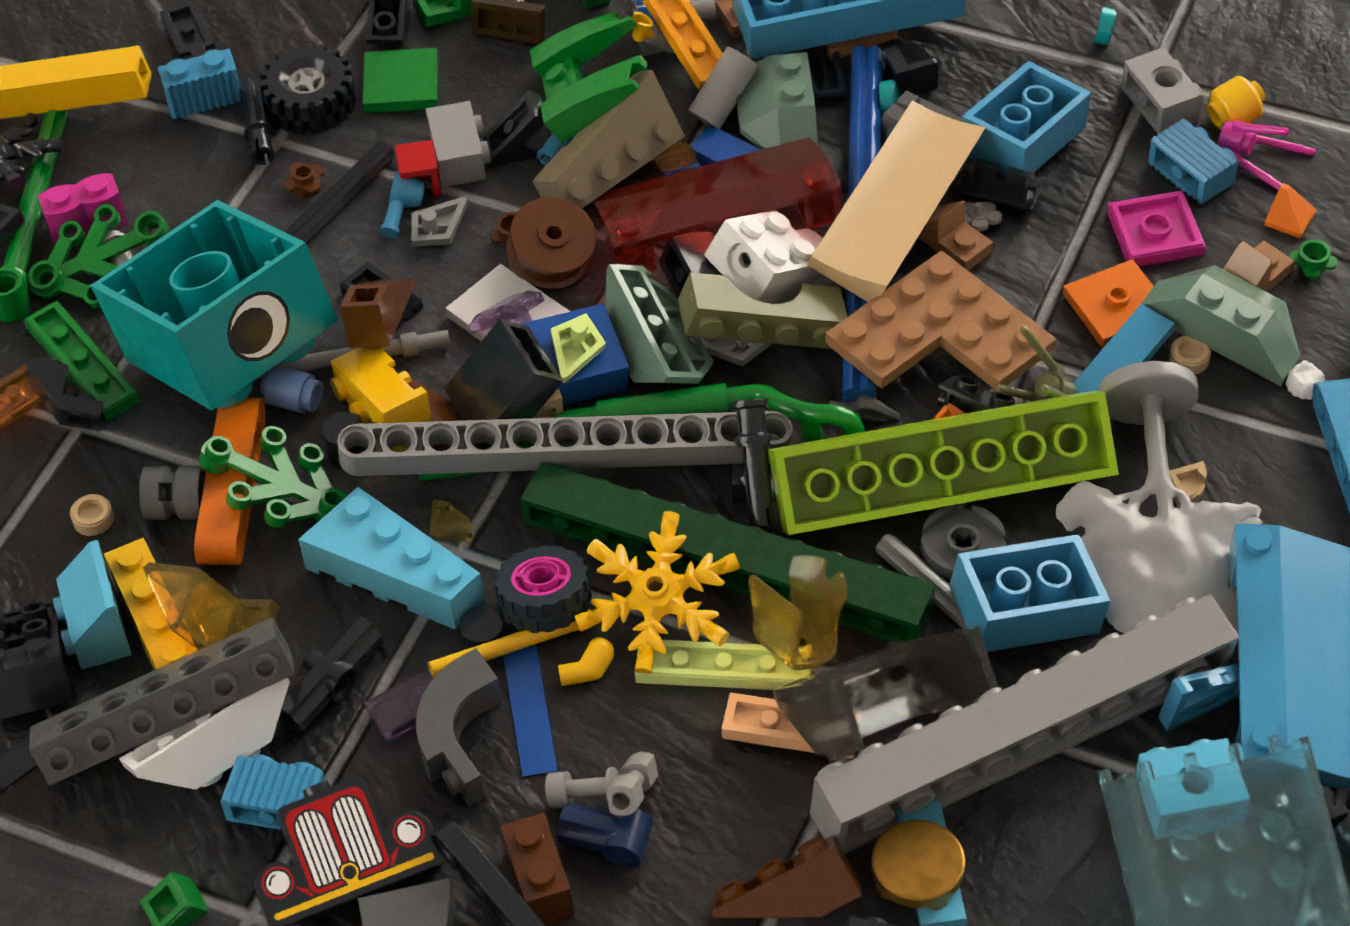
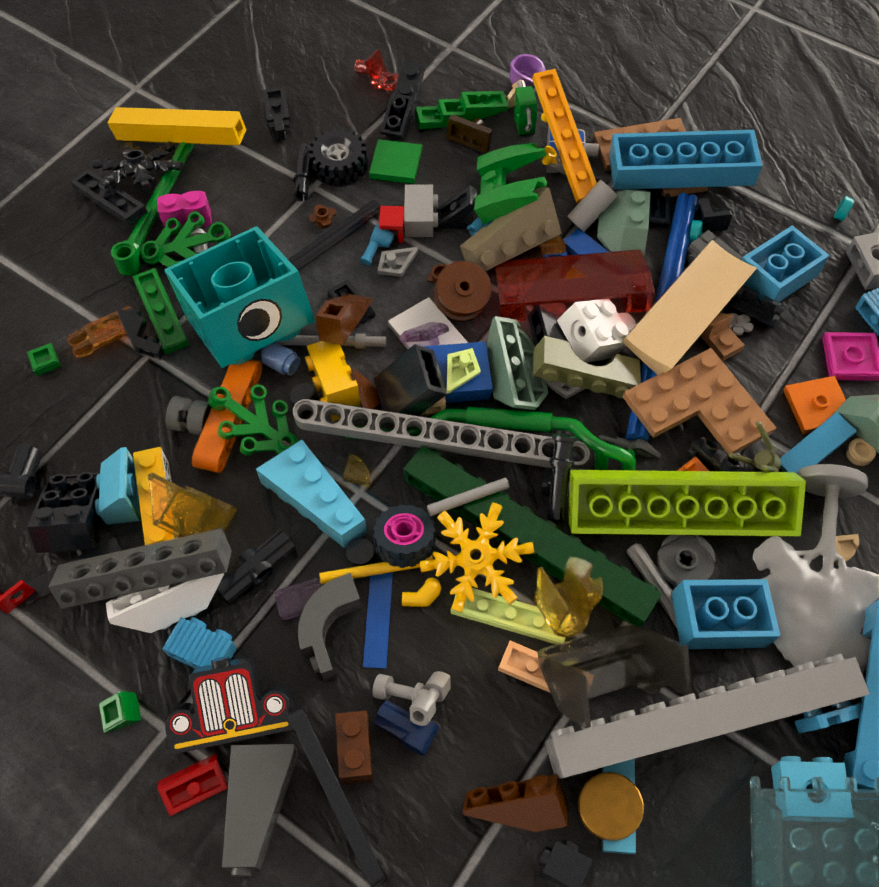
camera: 10 degrees right, 10 degrees up
(92, 514) = (139, 417): tan tile -> none
(200, 83) = (274, 141): dark azure brick -> none
(625, 514) = (468, 496): none -> light grey bar

